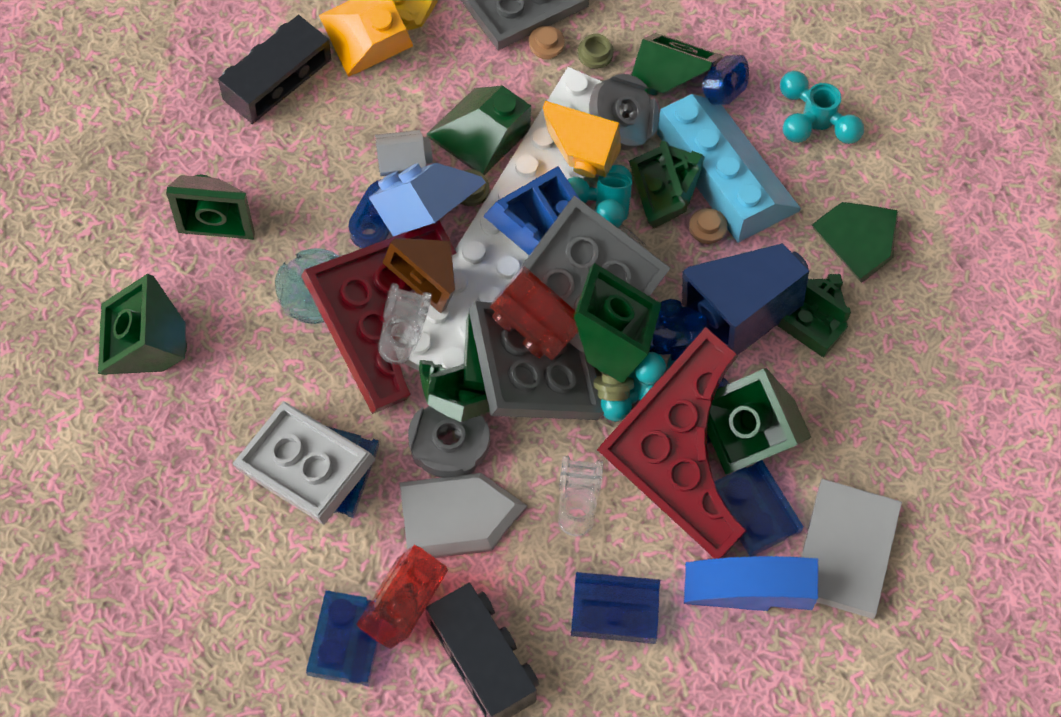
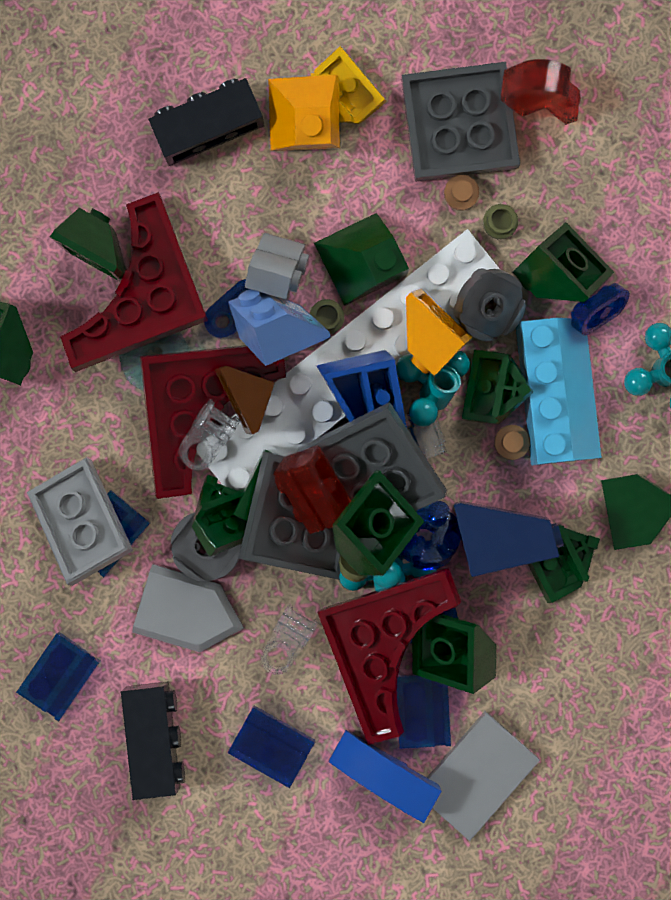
camera: 25 degrees right, 25 degrees up
(287, 229) = (152, 298): none -> dark red plate
(402, 597) = (107, 673): clear red brick -> none

